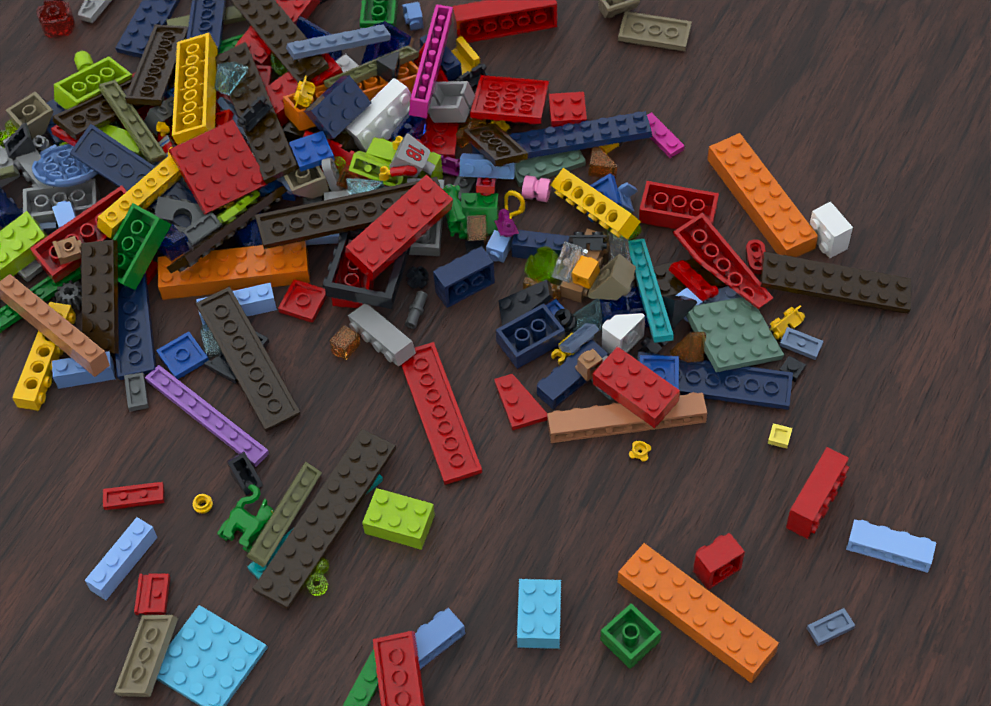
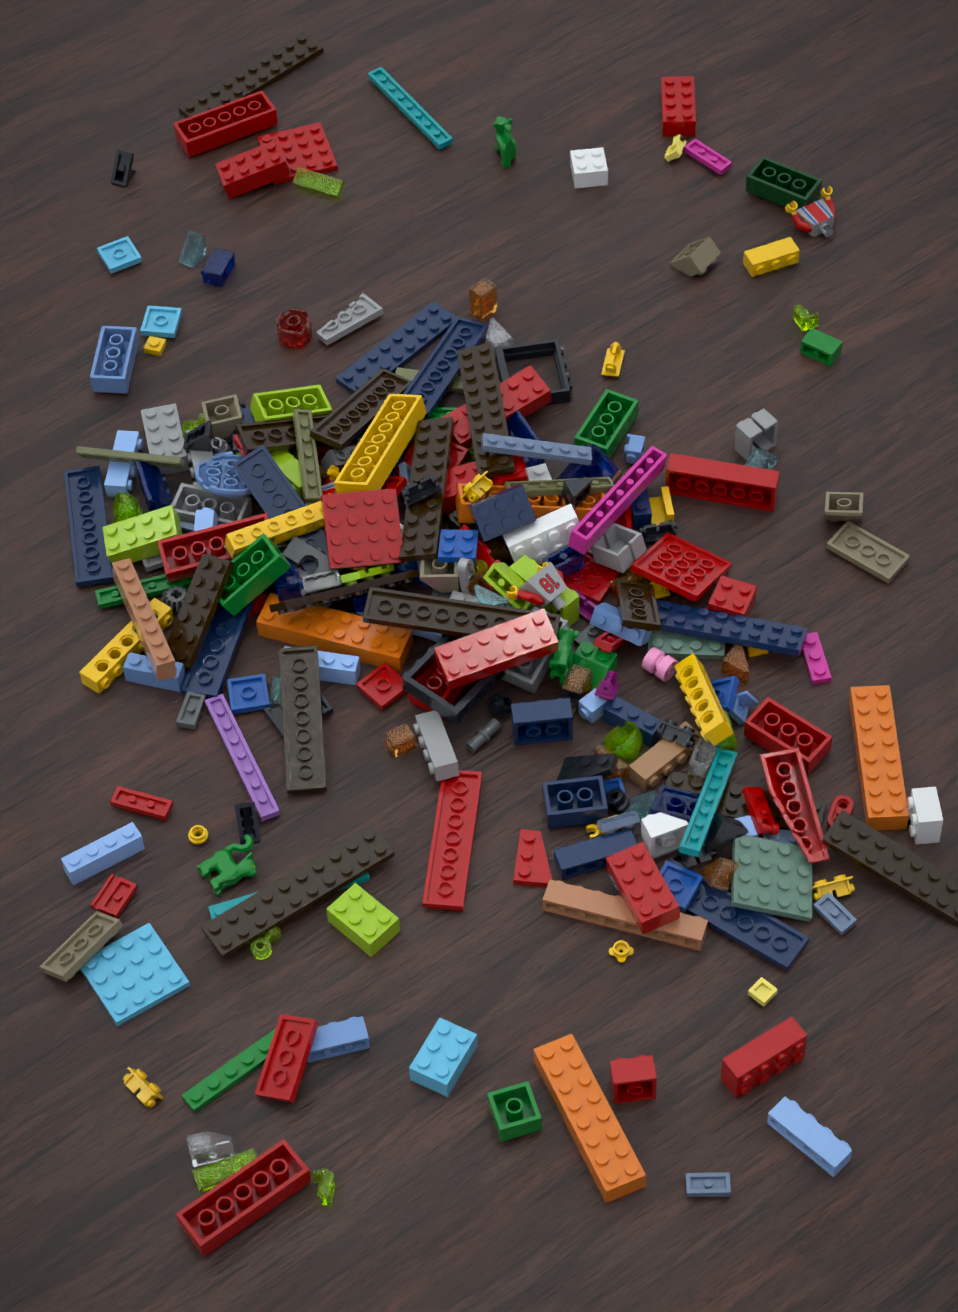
camera: 25 degrees right, 5 degrees down
(68, 255) = (186, 560): medium nougat brick -> none
(83, 60) = (299, 379): lime brick -> none
(228, 76) = (418, 444): clear light blue slope -> none
(284, 514) = (263, 873): olive tile -> none
(521, 199) = (620, 680): yellow piece -> none
(567, 261) = (646, 745): clear slope -> none
(585, 271) = (657, 761): light orange brick -> none
(586, 362) = (609, 845): medium nougat brick -> none
(613, 279) = (680, 779): dark tan slope -> none
(794, 366) = (815, 933): black plate -> none

